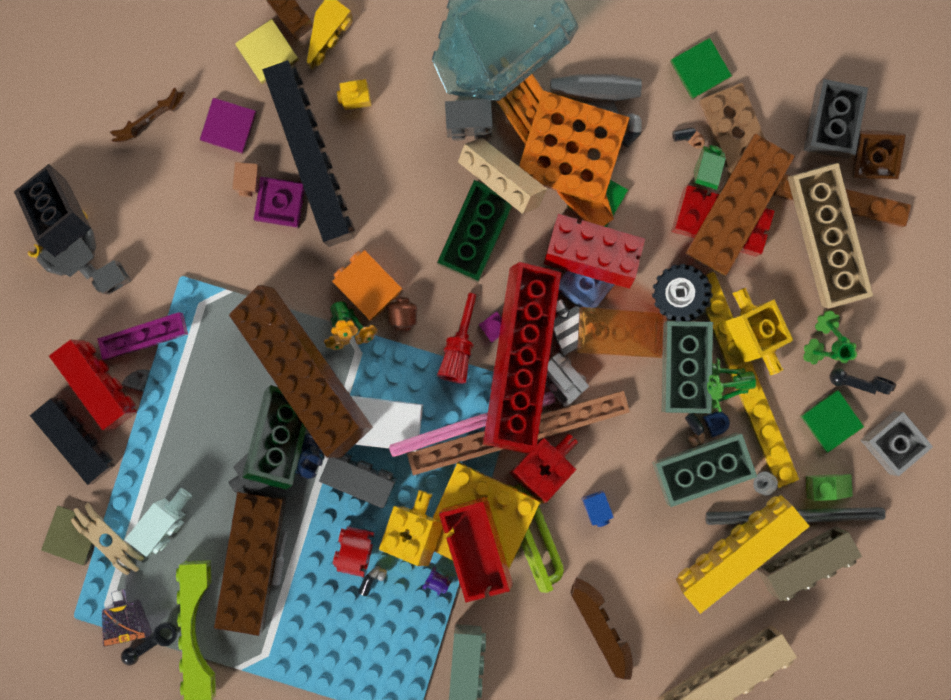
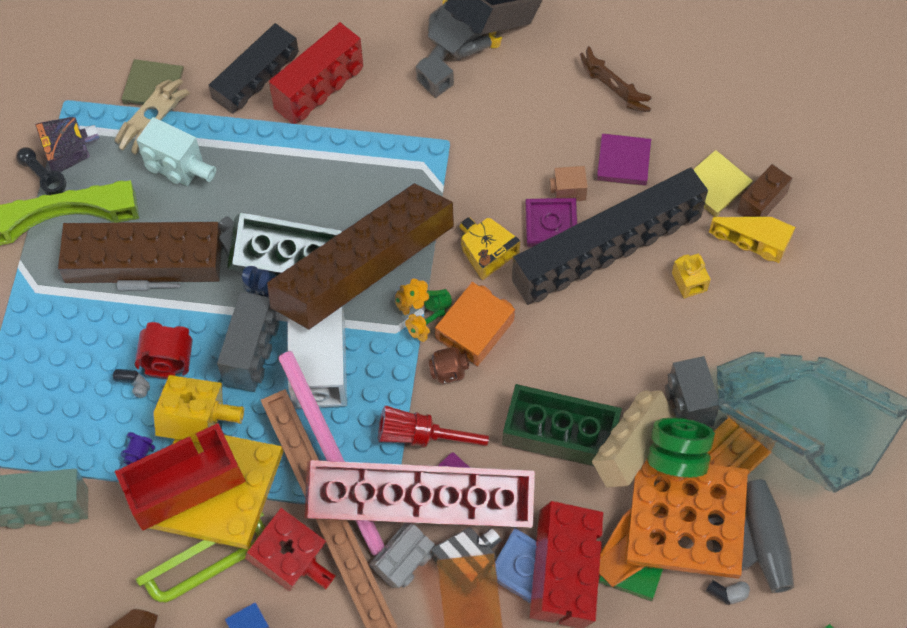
camera: 80 degrees right, 25 degrees down
(137, 380) = (328, 118): dark grey tile -> none
(142, 336) = (377, 113): magenta plate -> none
(294, 262) = (487, 245): none -> yellow torso
(522, 139) = (681, 447): none -> green wheel

